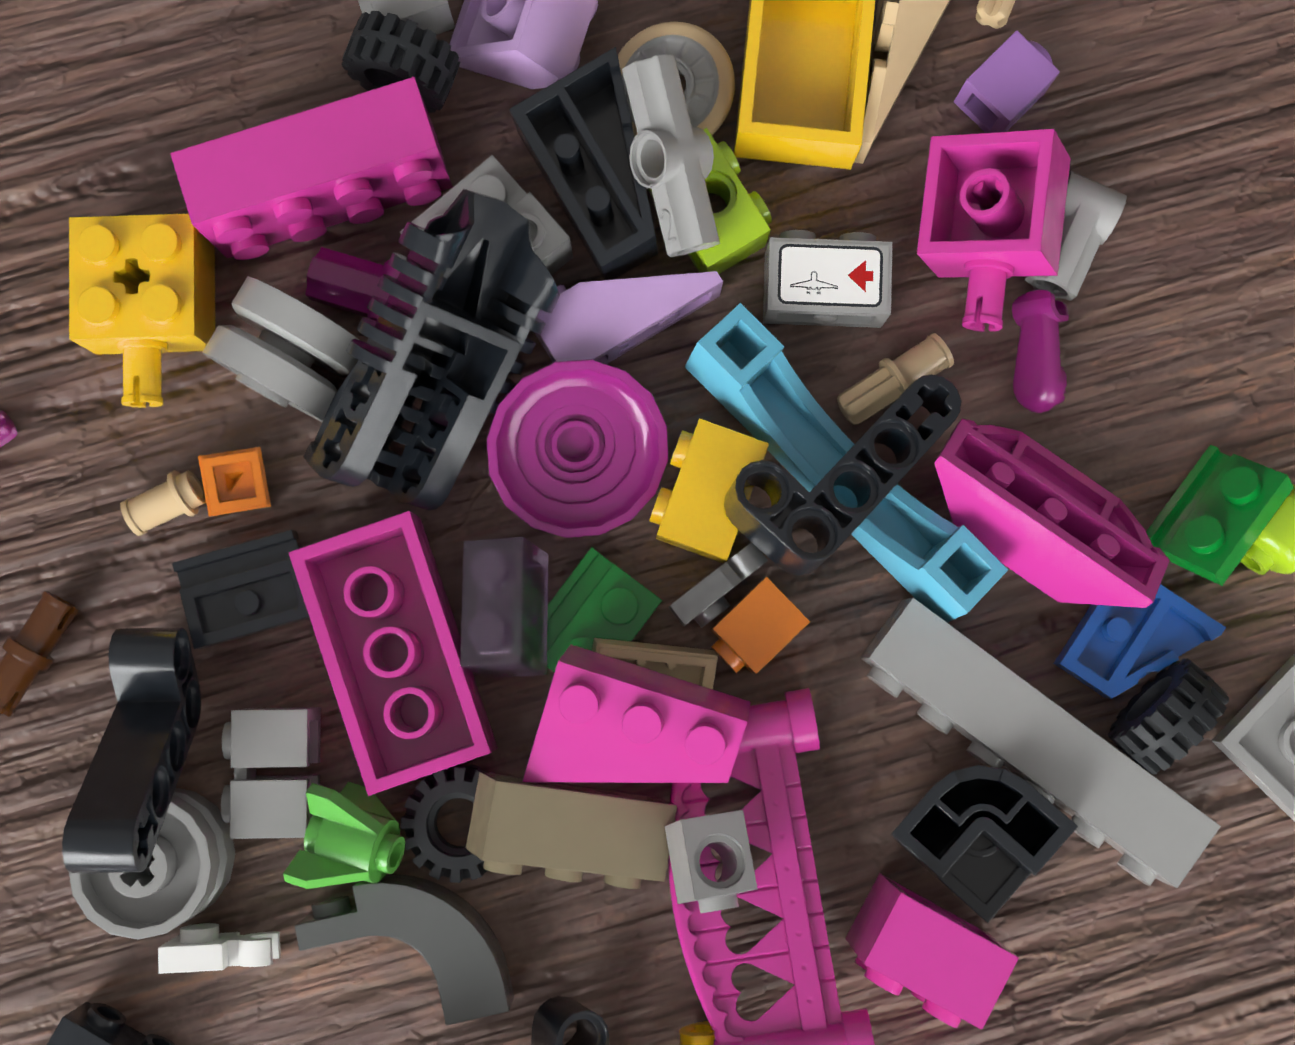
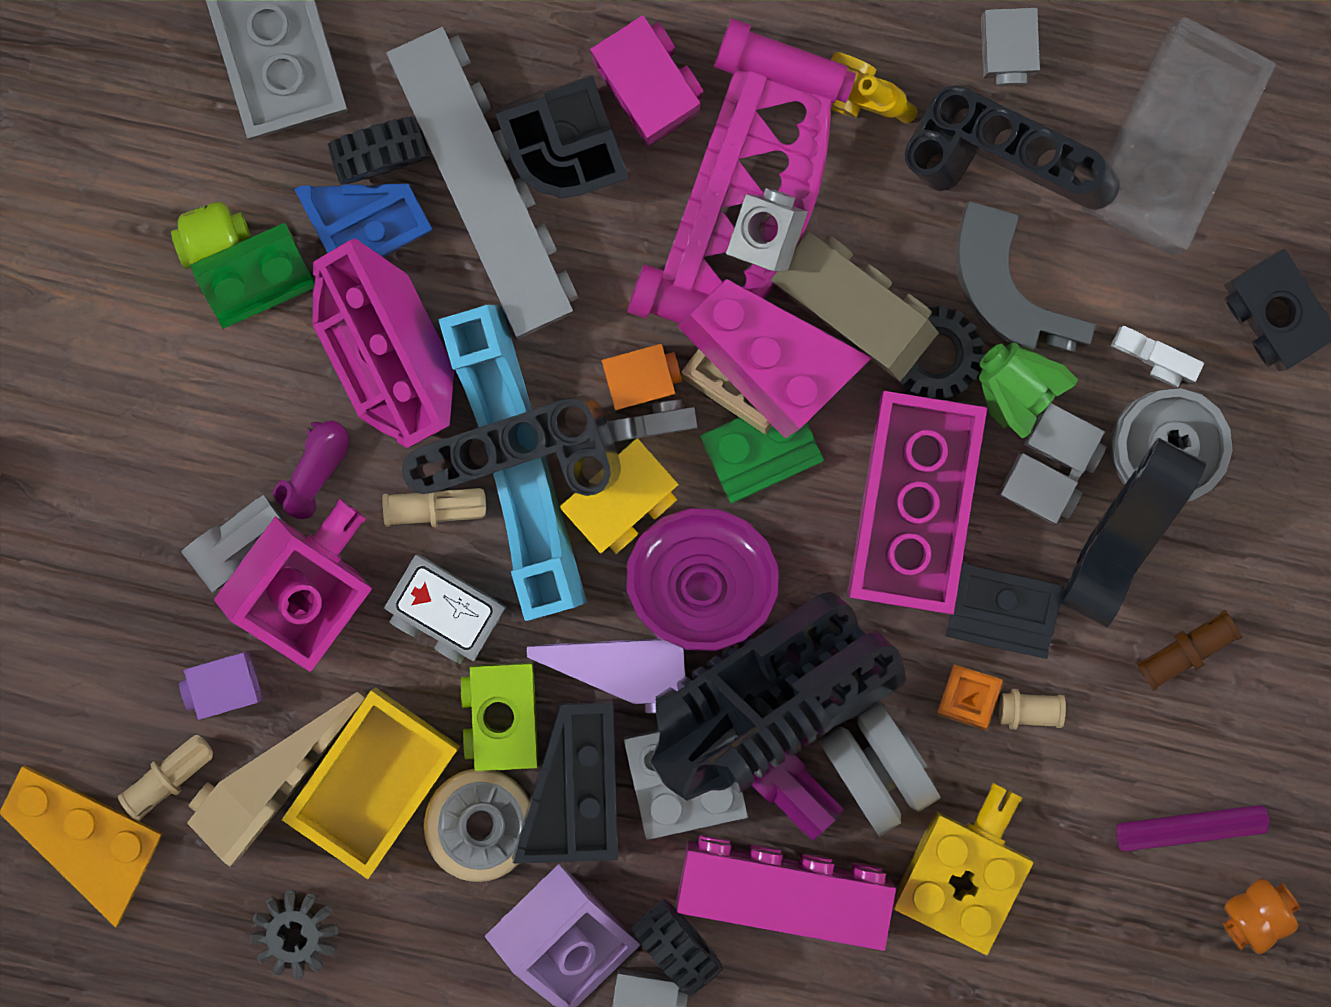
camera: 145 degrees left, 5 degrees up
(504, 608) = (818, 490): clear purple brick -> none
(670, 155) = (518, 755): light grey piece -> none

